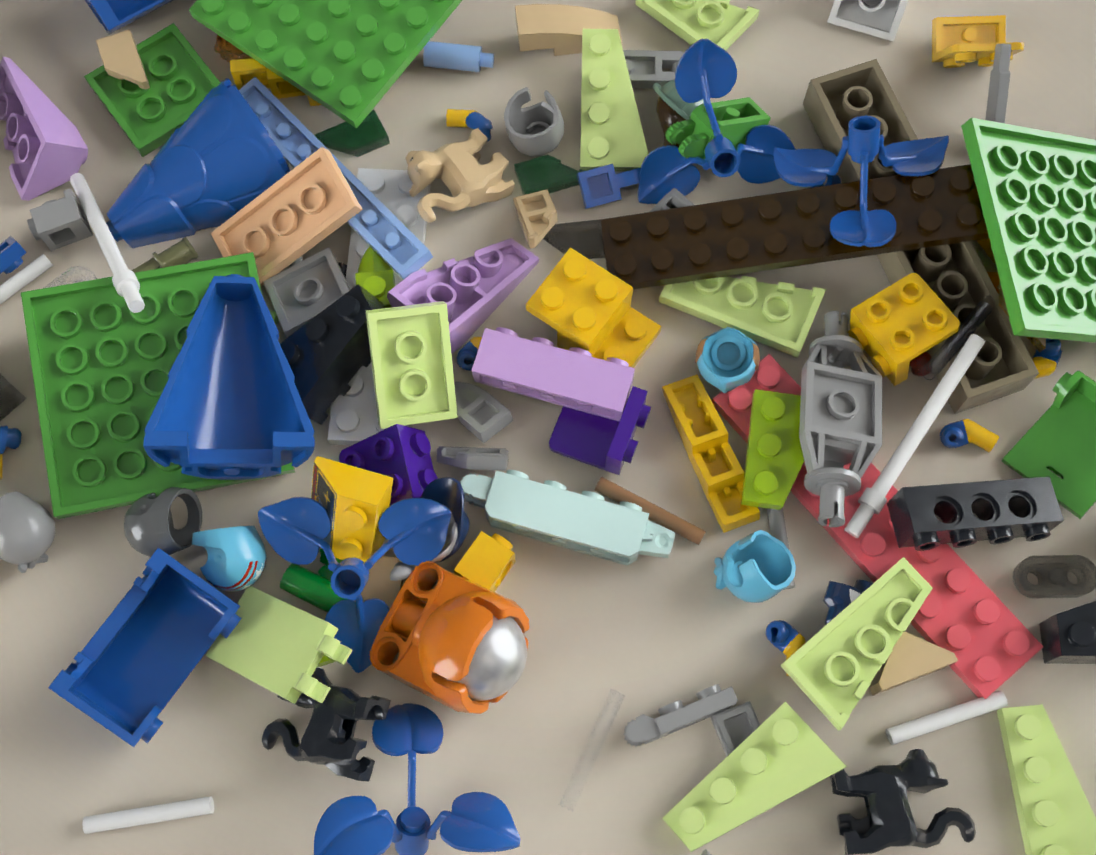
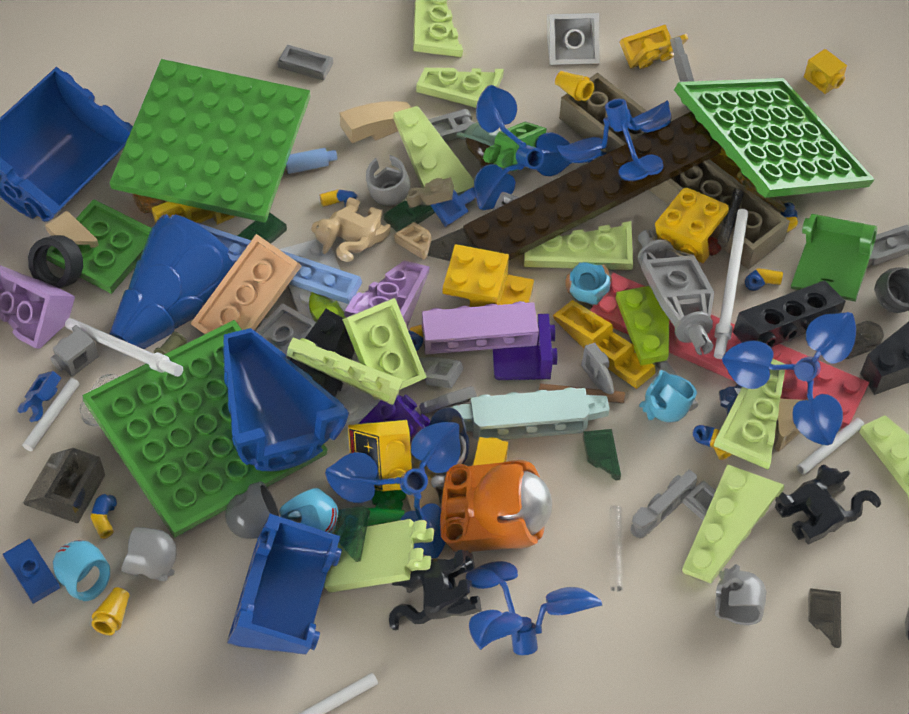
camera: 25 degrees left, 15 degrees down
(100, 89) = (71, 253): none -> black tyre
(262, 601) = (352, 528): none -> clear green tile
(297, 342) = (348, 371): none -> yellowish green wing
(586, 160) = (434, 192): none -> dark tan plate
(637, 605) = (601, 451): none -> clear green tile
(684, 482) = (596, 366): none -> light grey plate
(834, 70) = (575, 85): none -> yellow cone
(1002, 586) = (833, 339): none -> blue plant

